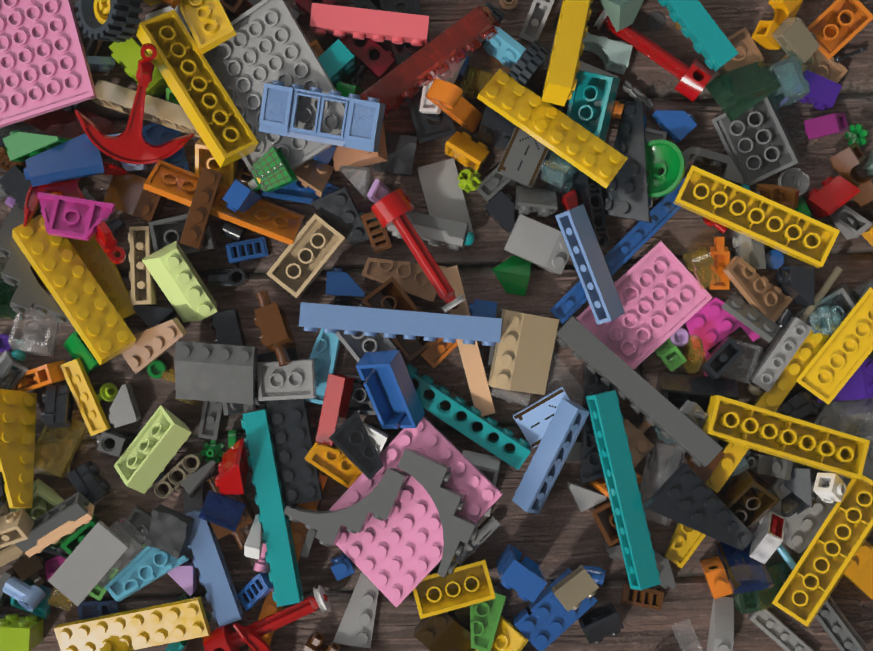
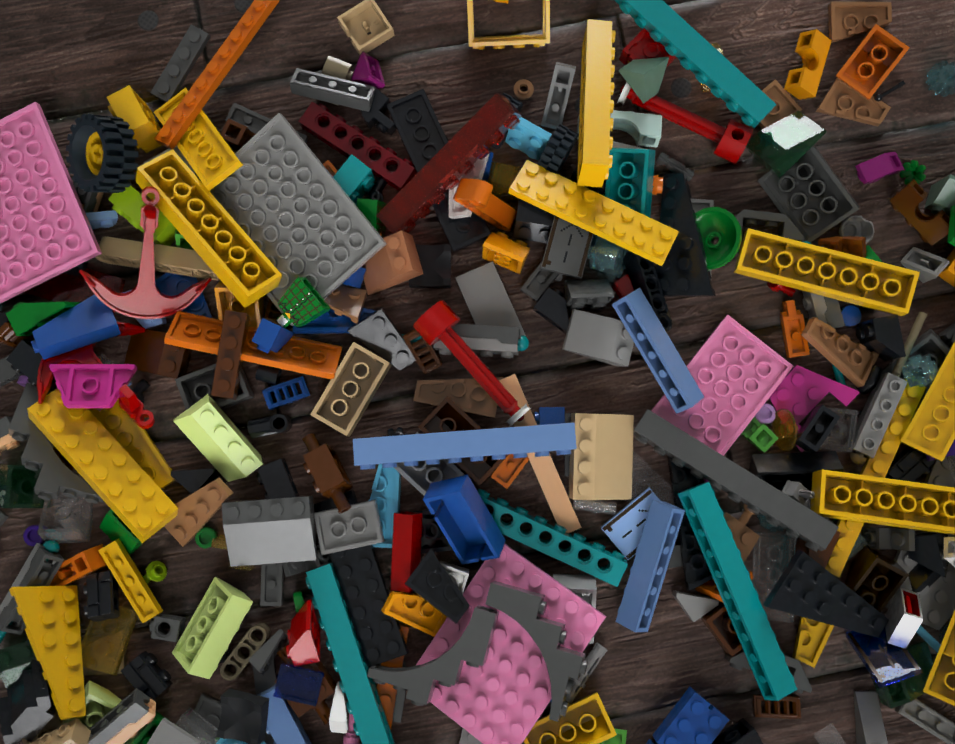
camera: 10 degrees left, 5 degrees down
(124, 407) = (175, 585): light grey slope -> none
(143, 284) = (177, 445): tan brick -> none
(216, 450) = (282, 617): green plant -> none
(341, 284) = (393, 413): blue slope -> none
(342, 566) = (440, 726): blue brick -> none
(359, 177) = (395, 297): clear slope -> none
(360, 123) = (388, 236): medium blue window -> none
(369, 24) = (382, 134): coral brick -> none
(377, 191) = (417, 308): lavender slope -> none
(469, 180) = (513, 281): lime gear -> none
(513, 275) = (577, 375): green slope -> none
(523, 577) = (641, 704): blue piece -> none
(575, 588) = (703, 710): dark tan brick -> none
(596, 573) = (717, 690): blue cone -> none
(620, 253) = (686, 335): blue plate -> none
(675, 123) = (720, 188): blue slope -> none
(702, 265) = (775, 331): clear yellow brick -> none
(716, 578) = (855, 673): orange torso -> none
(751, 317) = (839, 380): dark grey plate -> none
(792, 83) = (838, 127): clear light blue slope -> none
(796, 39) = (832, 83): dark tan brick -> none
(822, 91) = (862, 133): dark purple brick -> none
(830, 196) = (898, 239): red slope -> none

